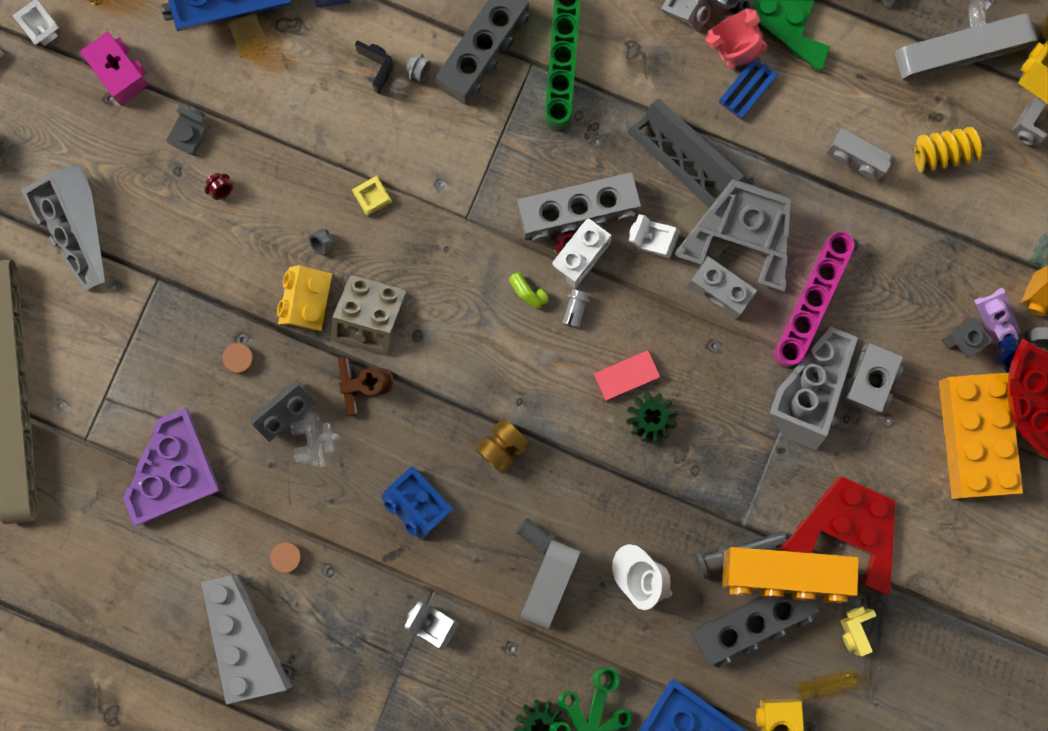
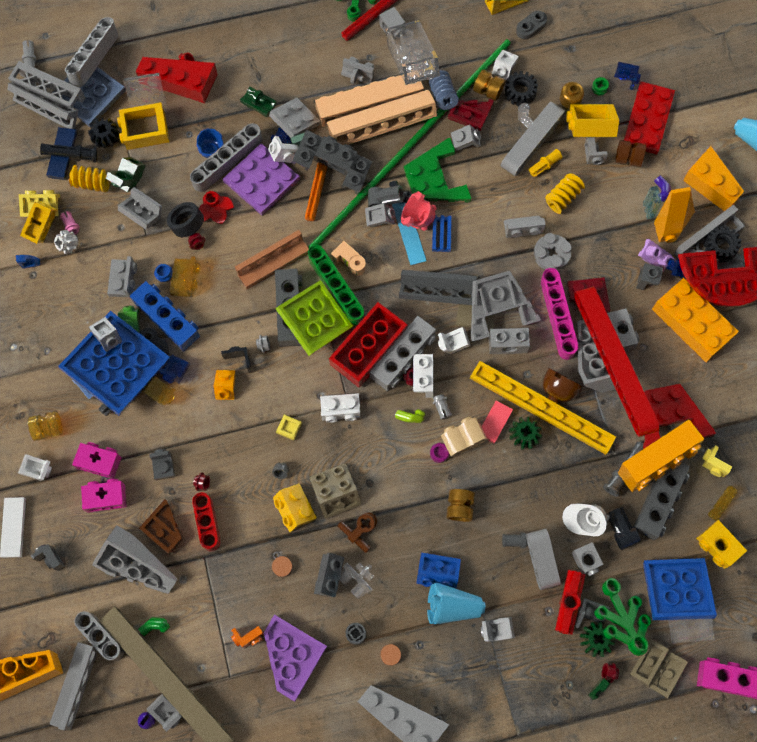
camera: 35 degrees left, 10 degrees down
(43, 313) = (154, 623): none -> green arm
(76, 112) = (113, 500): none -> dark pink brick
(133, 207) = (163, 528): none -> reddish brown wing
(139, 415) = (252, 637): none -> orange bracket
(190, 252) = (204, 512): none -> red beam
(267, 502) = (355, 633): none -> dark grey wheel
(286, 22) = (174, 370): none -> clear blue bracket
(333, 84) = (224, 384): none -> light orange bracket
(400, 556) = (452, 605): none -> medium azure cone
(452, 217) = (340, 407): none -> white bracket
(501, 80) = (314, 317): none -> lime plate
(526, 672) = (567, 616): none -> red piece
(529, 362) = (439, 453): none -> magenta tile
(542, 162) = (367, 344): none -> red brick
(556, 684) = (587, 611): none -> dark grey bracket
(571, 365) = (464, 436): none -> tan brick
(599, 612) = (587, 550): none -> light grey brick
(607, 36) = (350, 258): none -> light nougat leg
(675, 629) = (625, 533): none -> black piece
(698, 402) = (543, 407): none -> yellow plate
(703, 66) = (410, 237): none -> medium azure sticker
(740, 392) = (560, 387): none -> reddish brown cylinder
(830, 415) = (616, 362): none -> red beam
(875, 303) = (598, 283): none -> dark red wing
(878, 200) = (555, 242): none -> light grey plate
(955, 91) = (545, 163): none -> yellow axle

